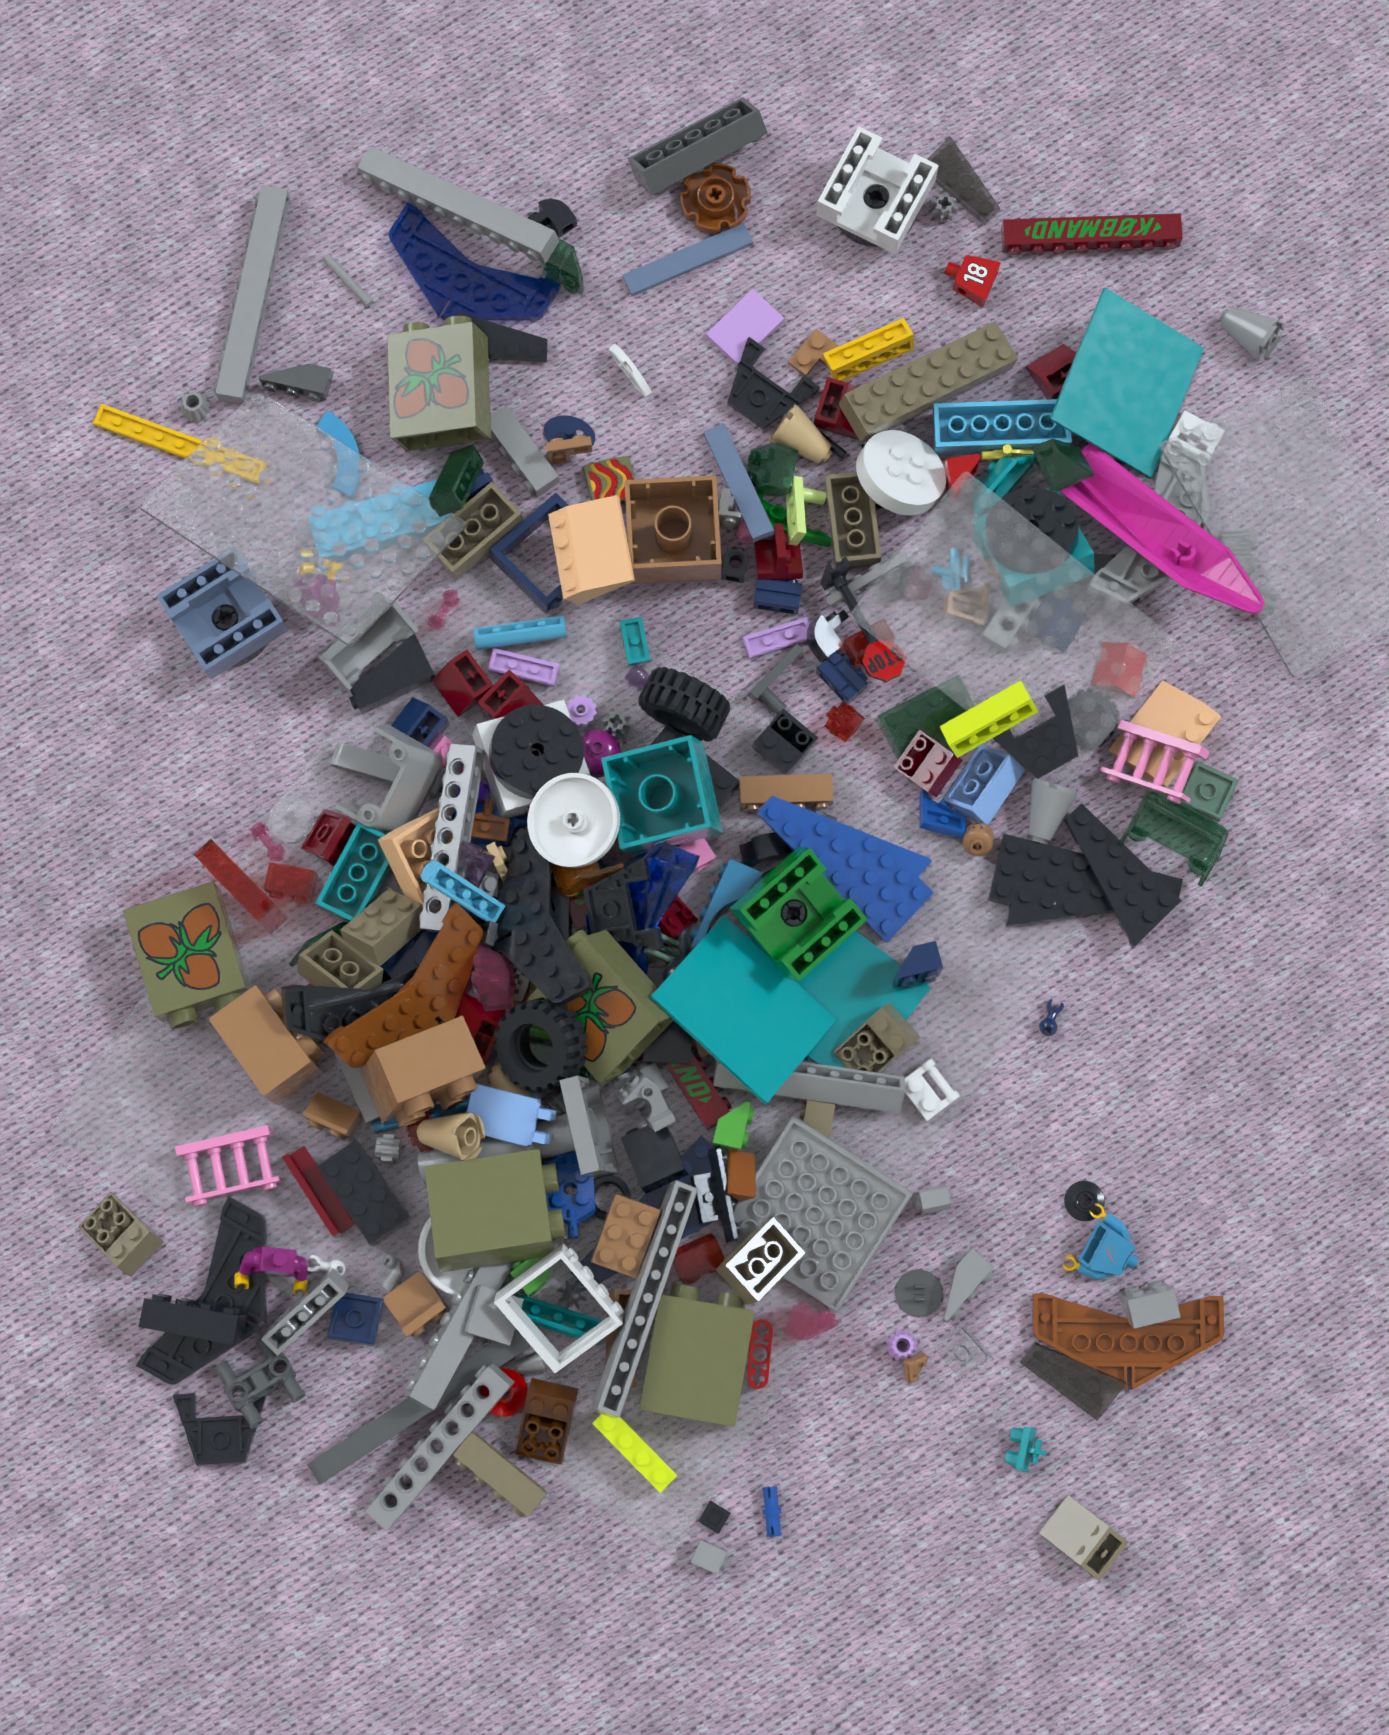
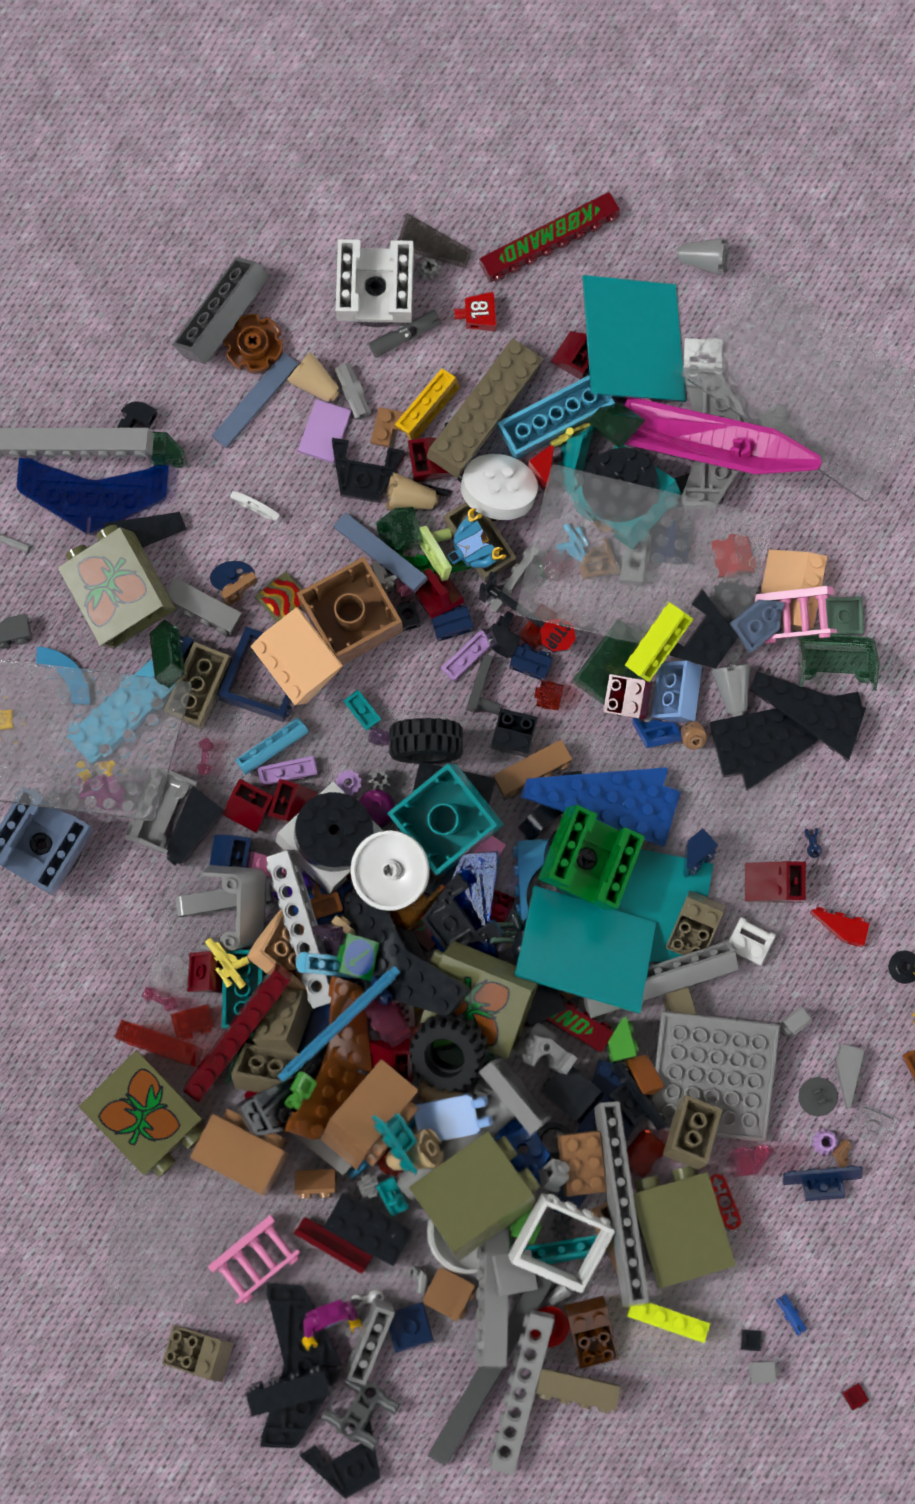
camera: 25 degrees left, 0 degrees up
(328, 914) = (237, 1032): none -> dark red brick
(357, 838) = (229, 963): none -> light yellow piece
(364, 1005) = (302, 1088): none -> bright green plate
(406, 1170) = (392, 1196): none -> teal hips
(437, 956) = (338, 1024): none -> dark azure piece
(438, 1107) = (398, 1137): none -> teal bracket
(493, 896) = (358, 957): none -> piece
(501, 952) = (385, 996): none -> dark blue arm
(587, 1232) = (557, 1173): none -> light grey brick
(760, 265) = (314, 379): none -> tan cone
(796, 298) = (353, 391): none -> light grey piece
(796, 1634) = (855, 1396): none -> dark red tile
(841, 520) = (473, 545): none -> torso
(869, 263) = (395, 338): none -> dark grey piece
(877, 1388) = (823, 1183): none -> dark blue bracket
(987, 1039) = (775, 882): none -> dark red slope
(1040, 1129) = (845, 929): none -> red slope
(1108, 751) = (758, 623): none -> sand blue tile

